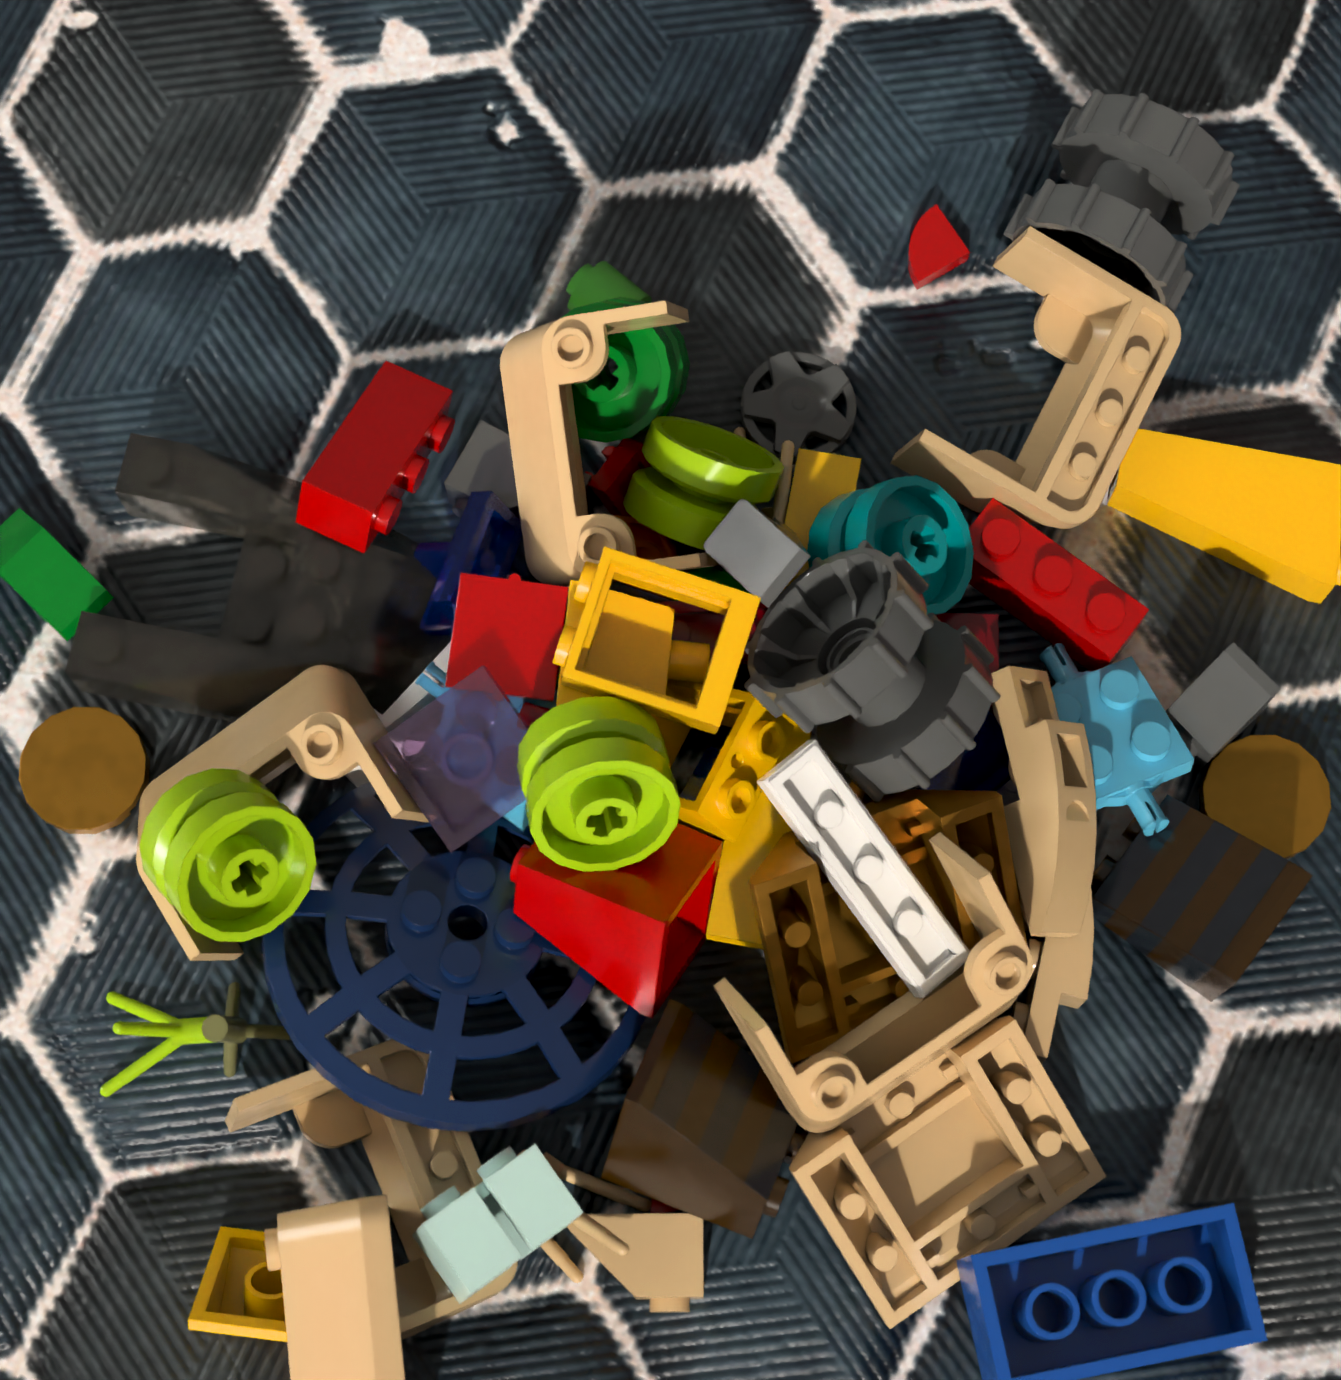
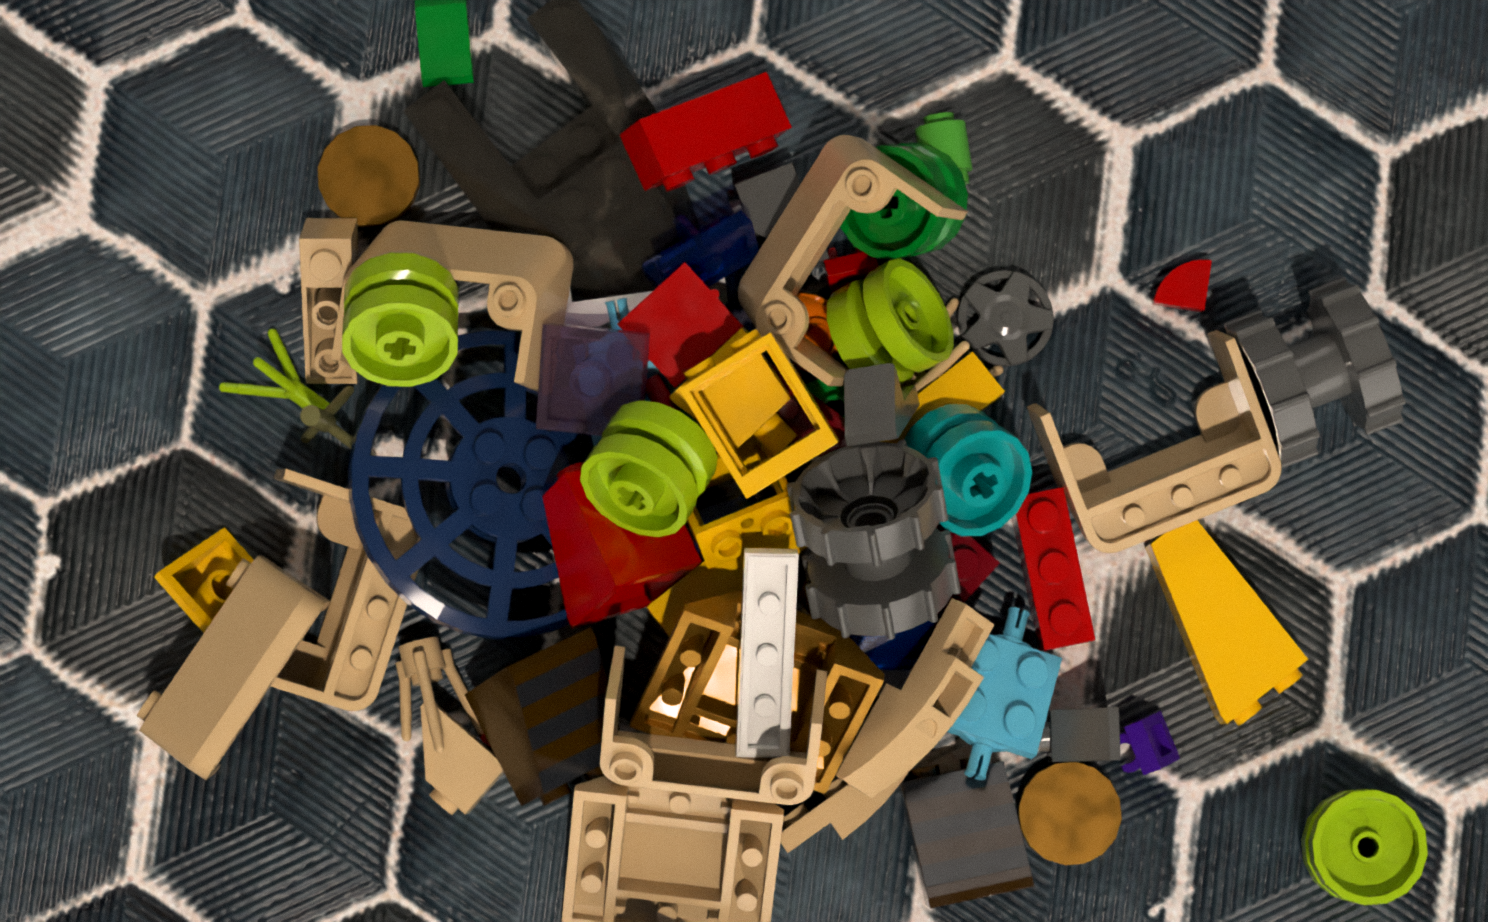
camera: 40 degrees right, 10 degrees up
(107, 877) = (326, 254): none -> tan slope
(496, 1222) = (351, 666): light aqua piece -> none
(1286, 668) = (1150, 744): none -> dark purple tile

